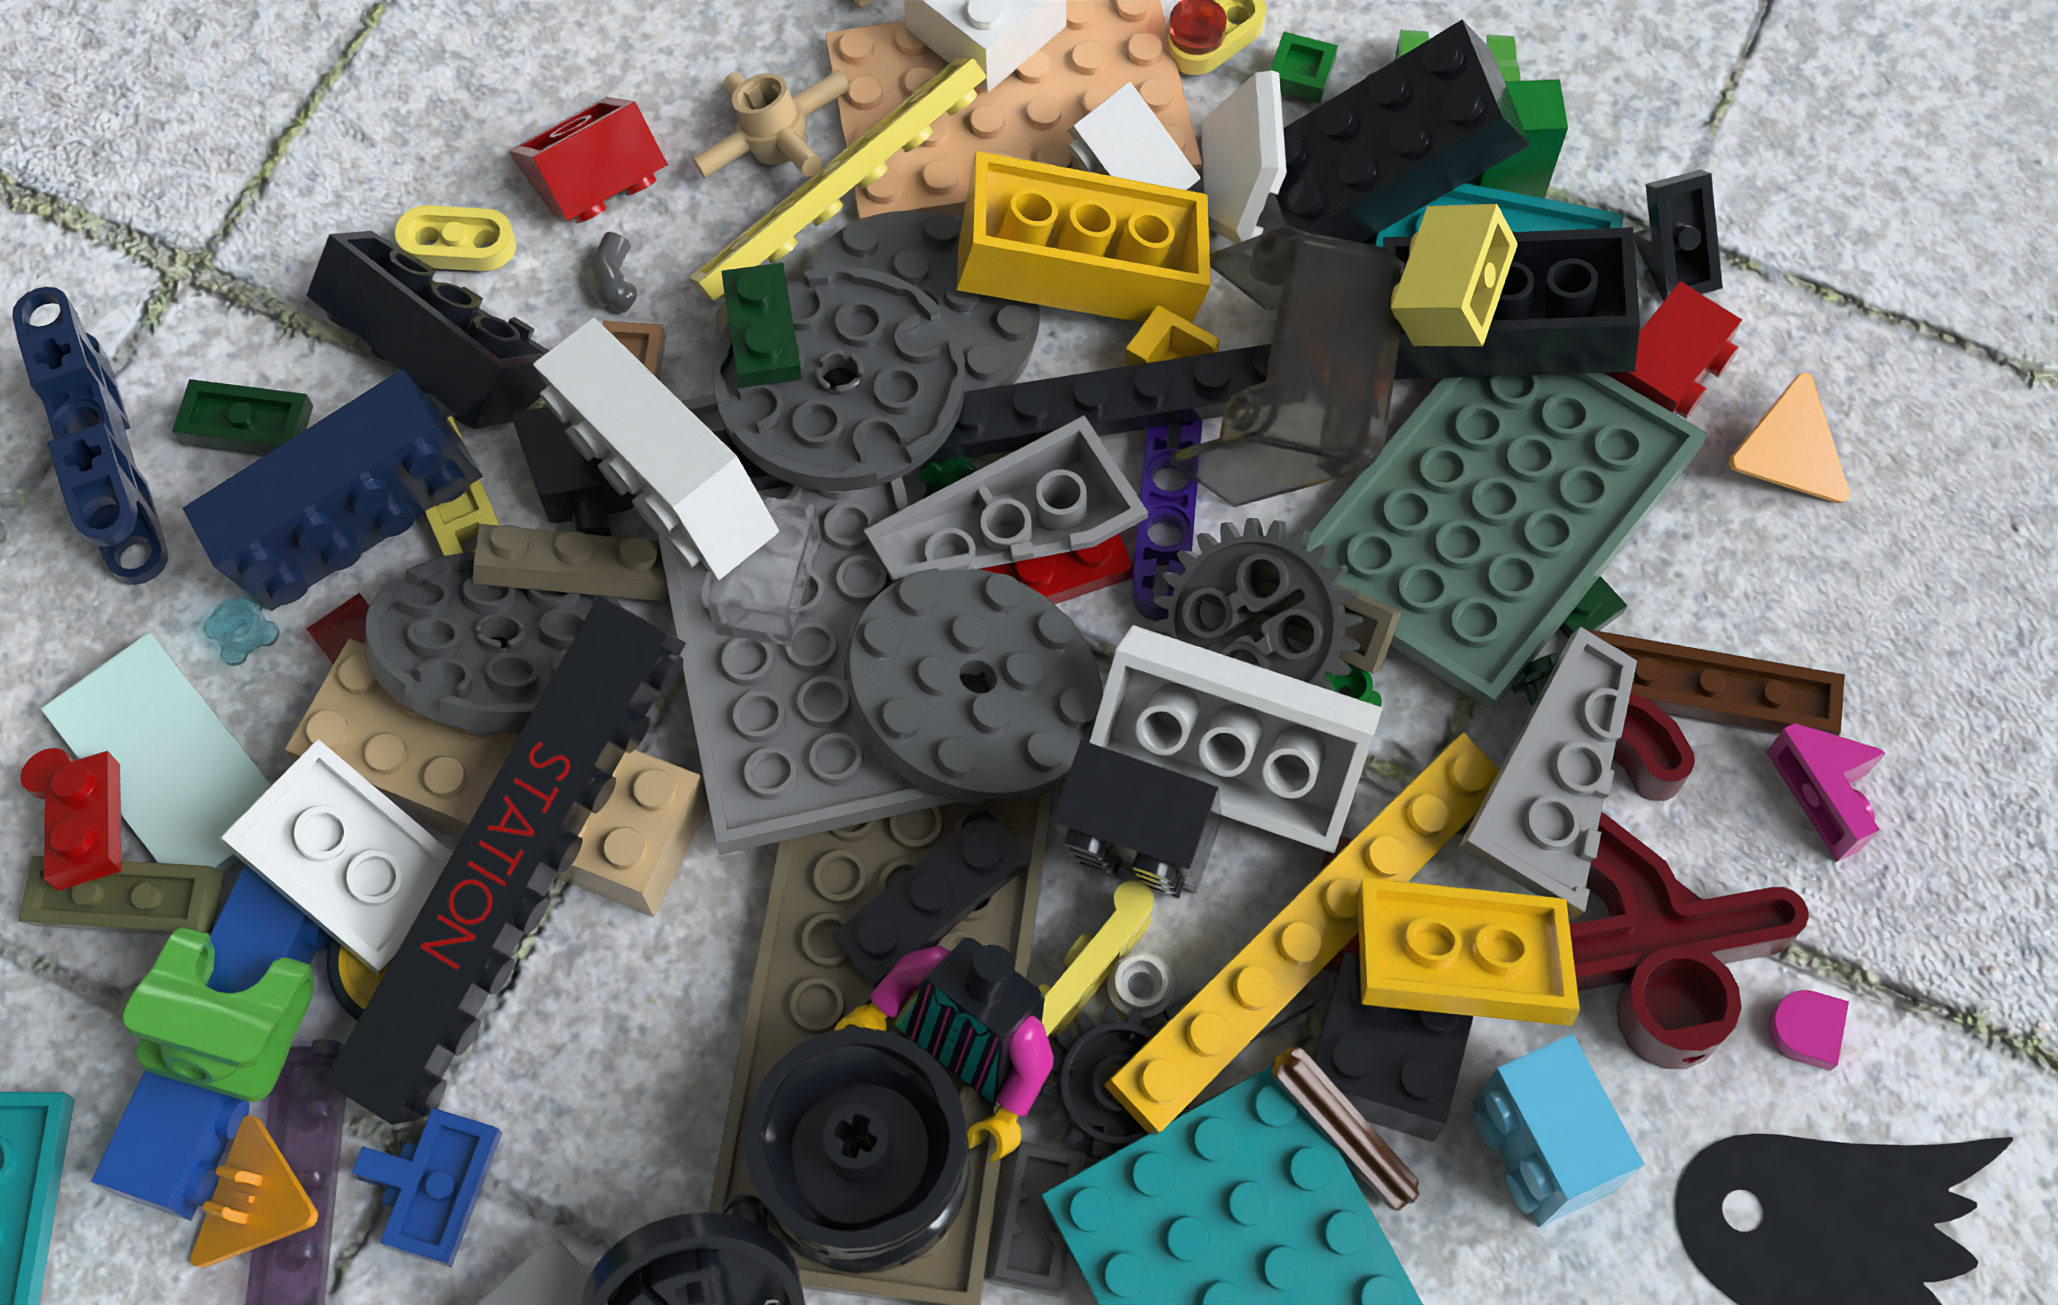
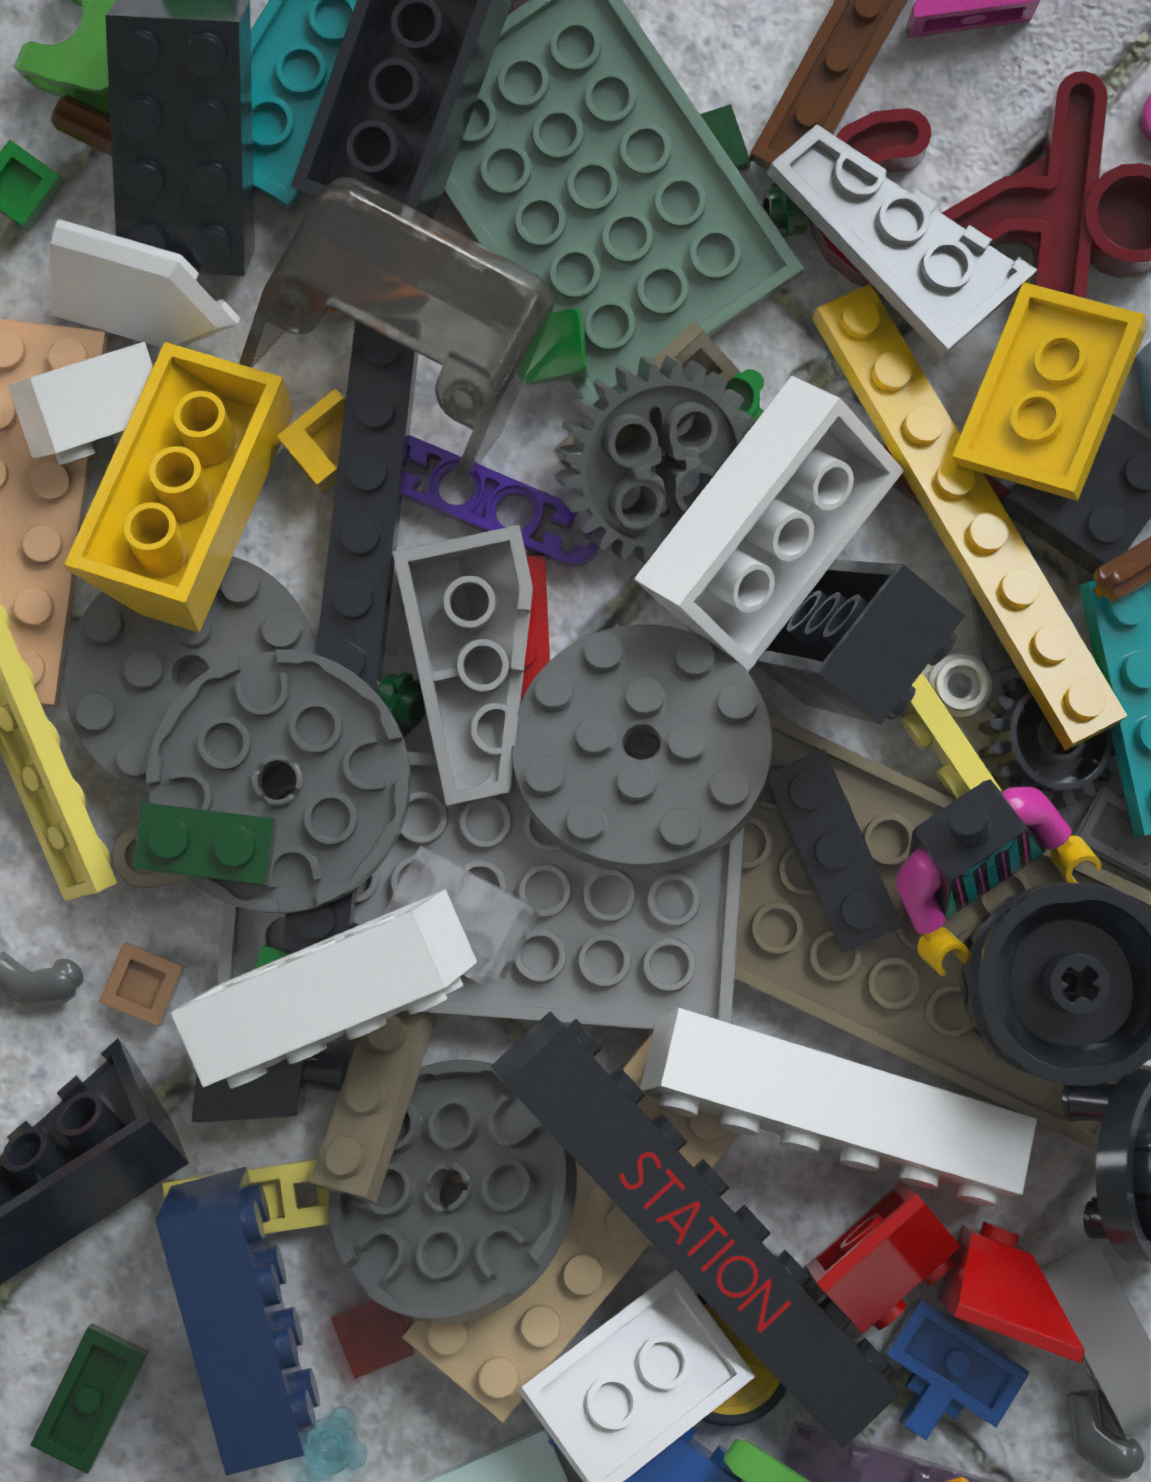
camera: 70 degrees left, 20 degrees up
(519, 1200) = (1006, 1292): none -> red slope
(529, 1070) = (884, 1258): none -> red slope
(671, 969) = (837, 1106): none -> white brick
(1331, 511) = (561, 350): none -> green slope
(1454, 275) = (390, 139): light yellow brick -> none

